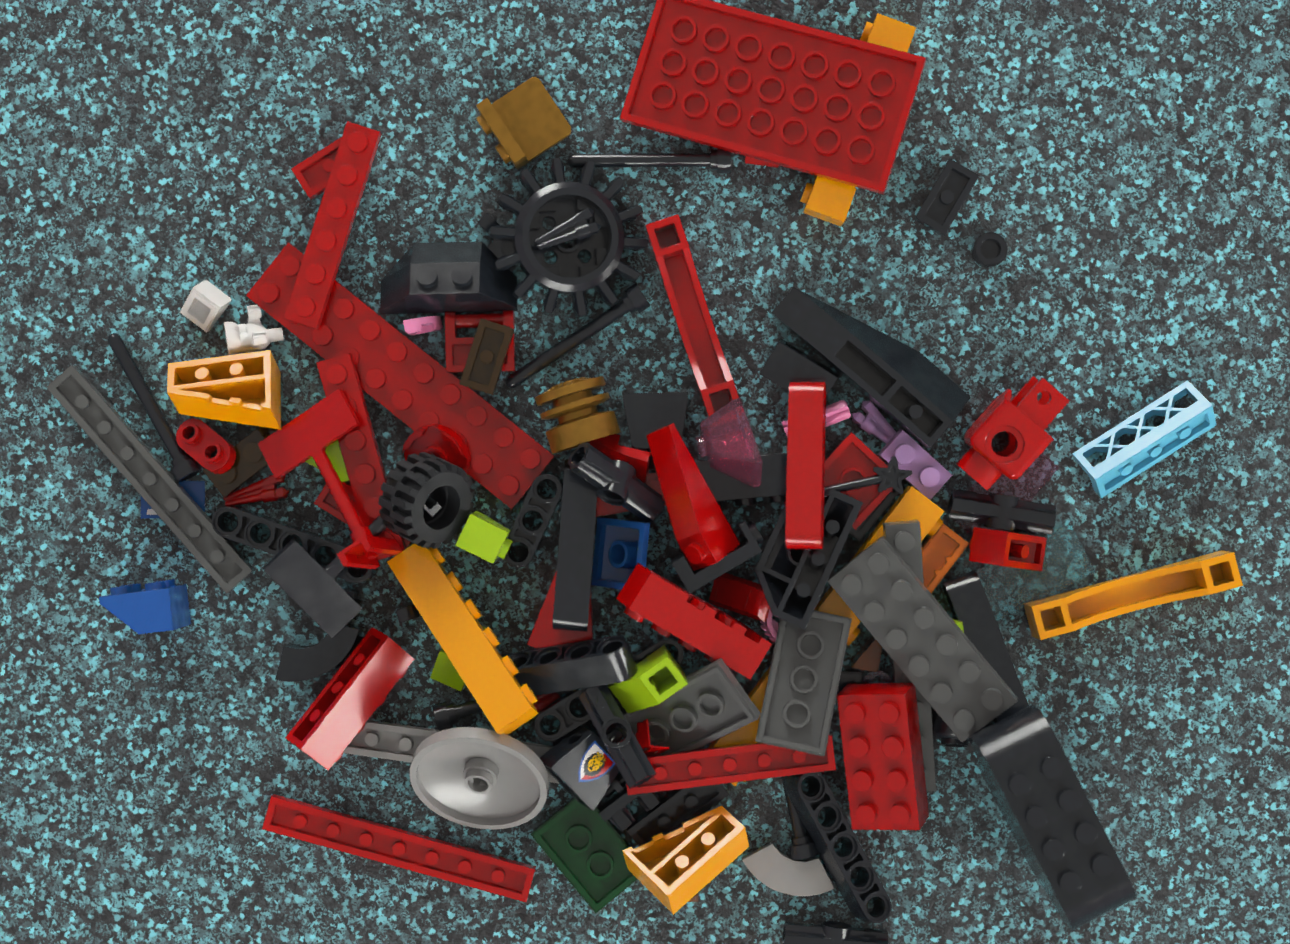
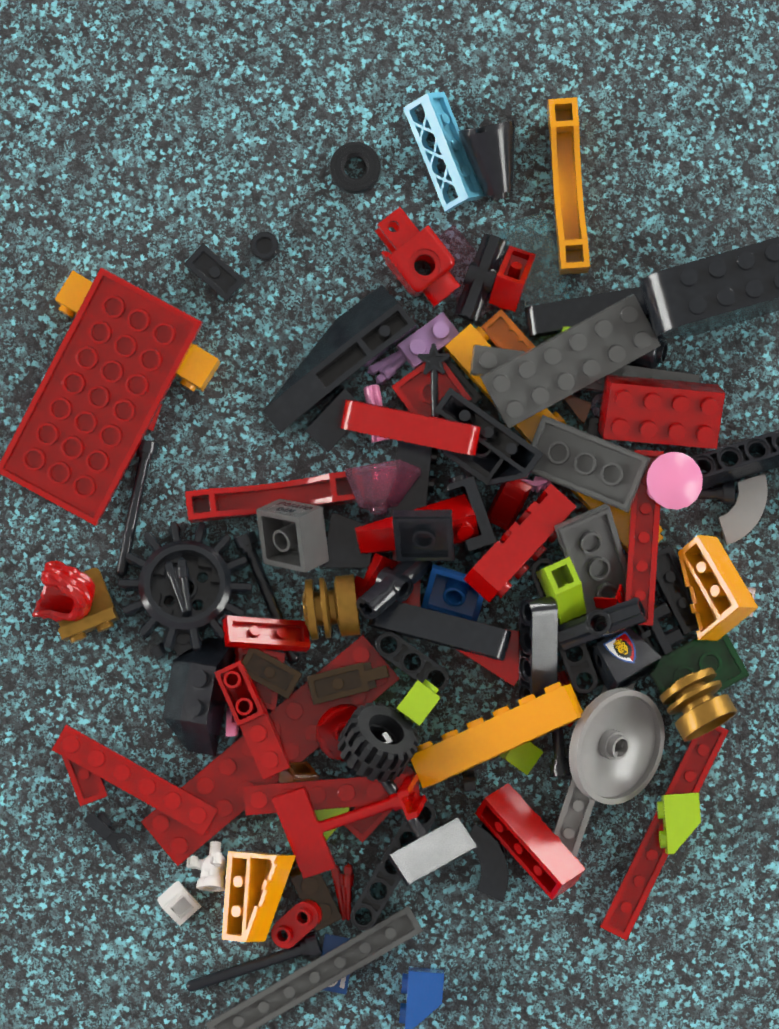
camera: 70 degrees left, 5 degrees down
(273, 199) = (102, 826): none -> black plate
(377, 412) = (298, 772): none -> reddish brown slope
(410, 866) = (679, 817): none -> lime slope
(427, 349) = (253, 719): none -> red slope
(493, 446) = (344, 681): none -> dark brown hinge
(530, 343) = (266, 633): none -> red plate
(531, 99) = (65, 593): none -> red hair
(546, 865) = (700, 708): none -> pearl gold wheel
(651, 351) = (292, 535): none -> dark grey brick
(679, 506) = (424, 535): none -> black tile
(803, 789) = (674, 480): none -> bright pink dish
(1125, 338) = (348, 151): none -> black tyre
(1150, 497) = (491, 157): none -> black cone

